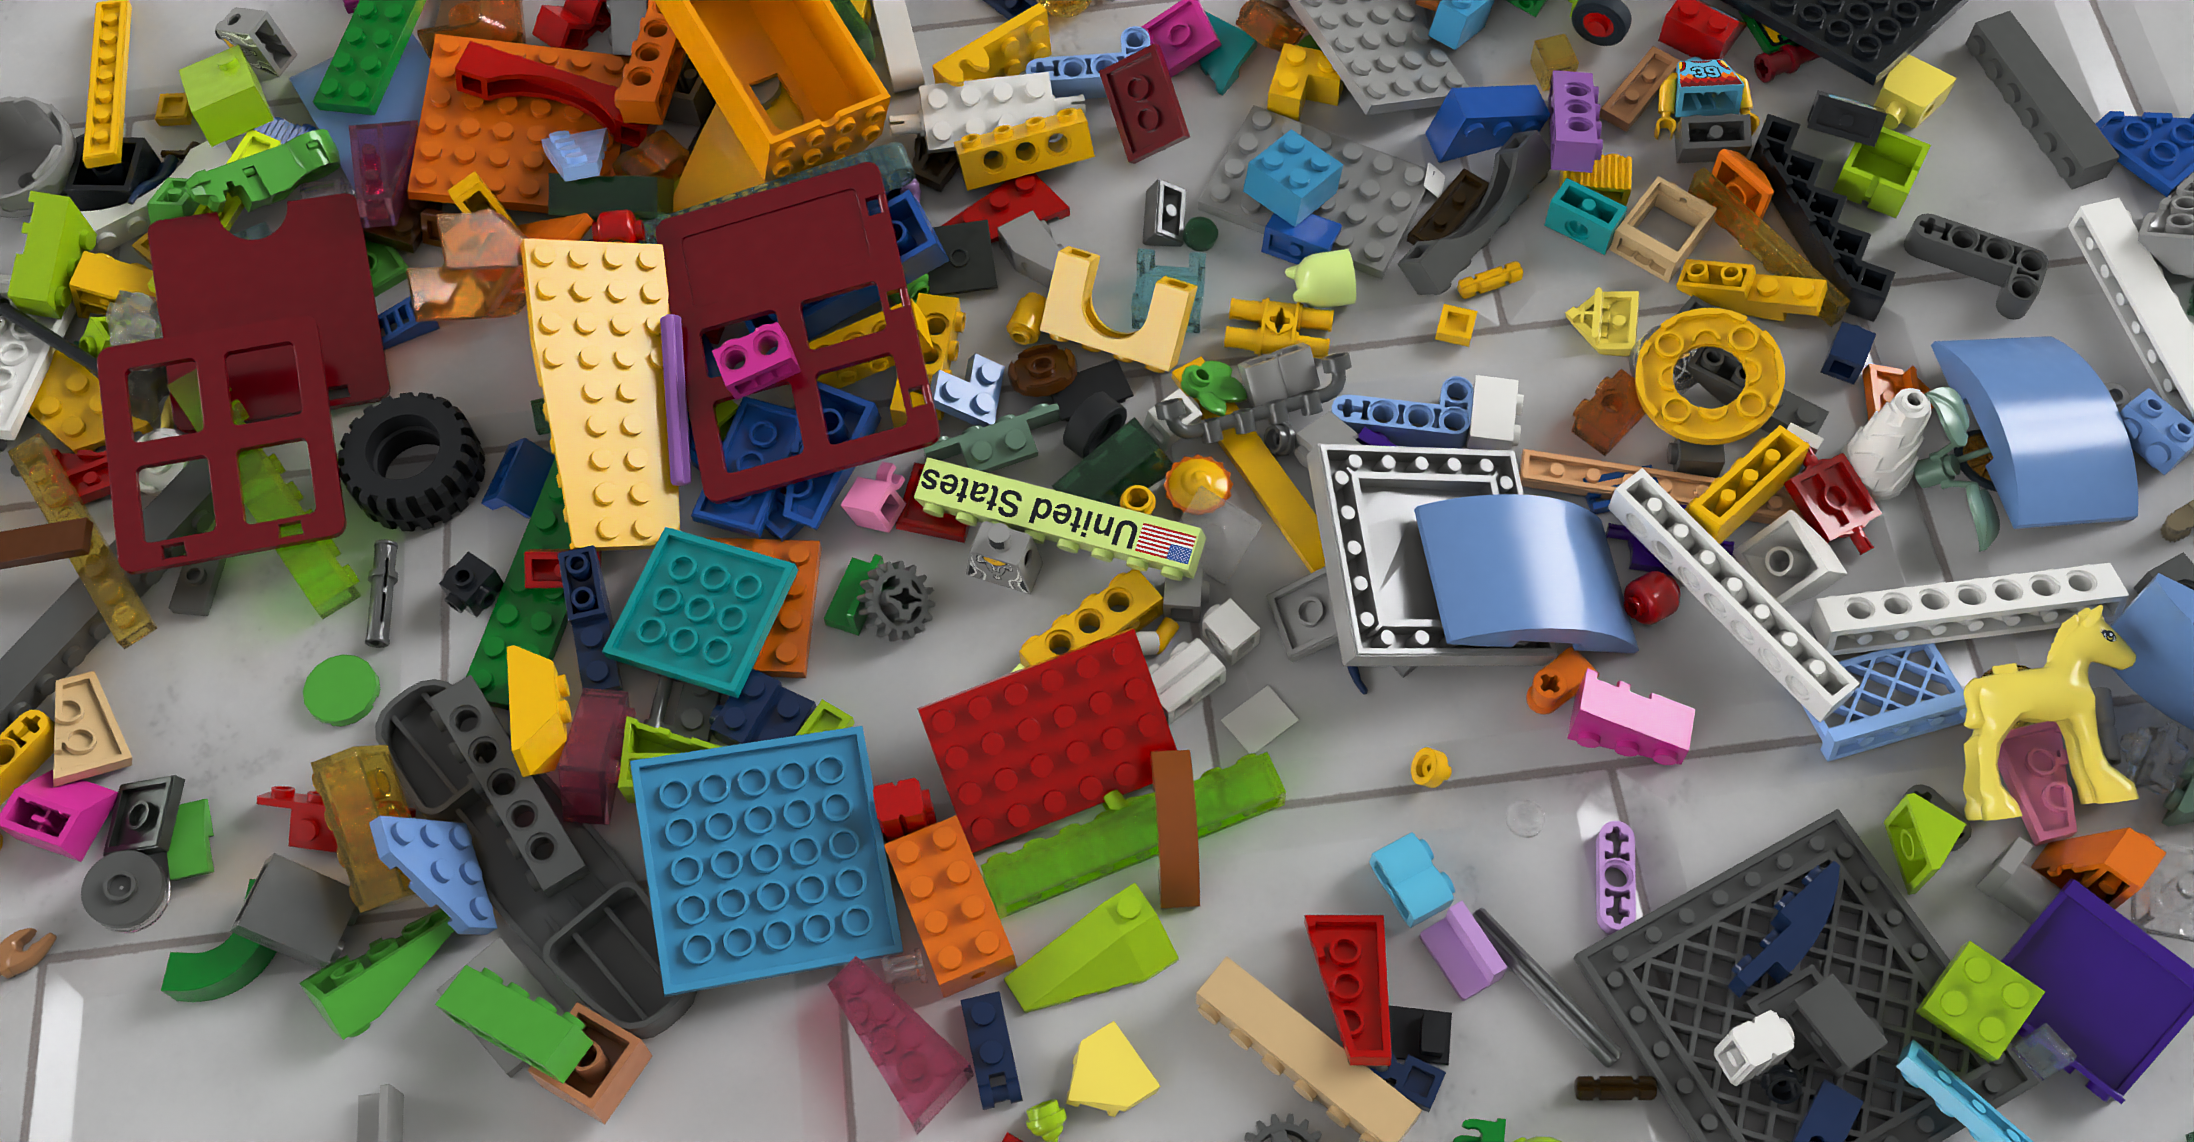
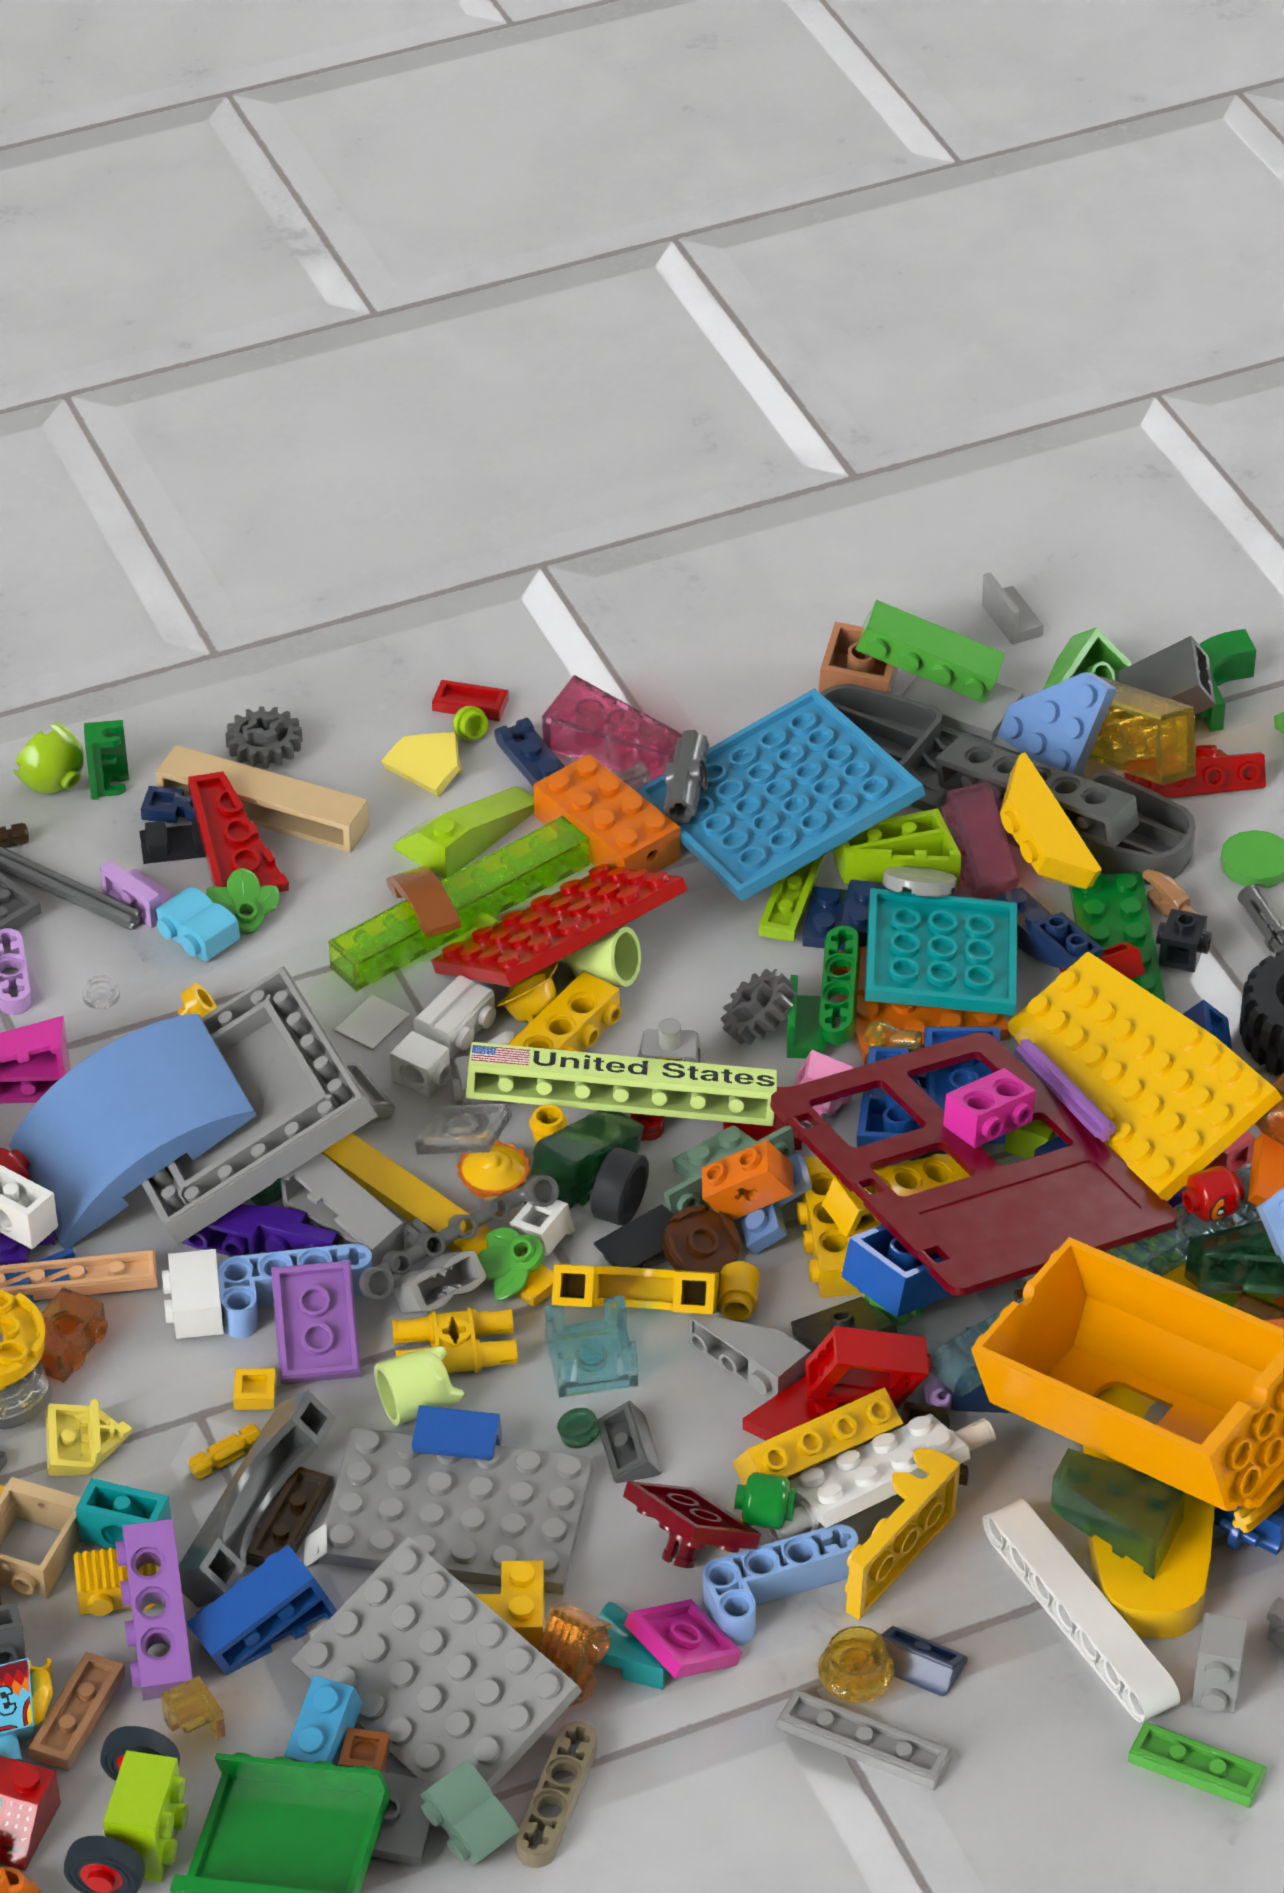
camera: 160 degrees right, 20 degrees down
(451, 649) = (1166, 893): none -> medium nougat hand
(681, 695) = (920, 881): none -> light grey tile
(791, 532) = (885, 1035): none -> clear yellow arm
(813, 610) = (840, 984): none -> green beam
(850, 911) = (686, 776): none -> dark grey piece
(903, 808) = (676, 849): red brick -> none
(987, 380) = (747, 1180): none -> orange brick
(991, 169) = (863, 1361): none -> red window
(1086, 89) = (766, 1500): none -> green head
(1292, 177) = (481, 1458): dark azure brick -> none
(1358, 901) = (246, 896): none -> bright green plate
(1393, 364) = (315, 1322): none -> medium lavender tile

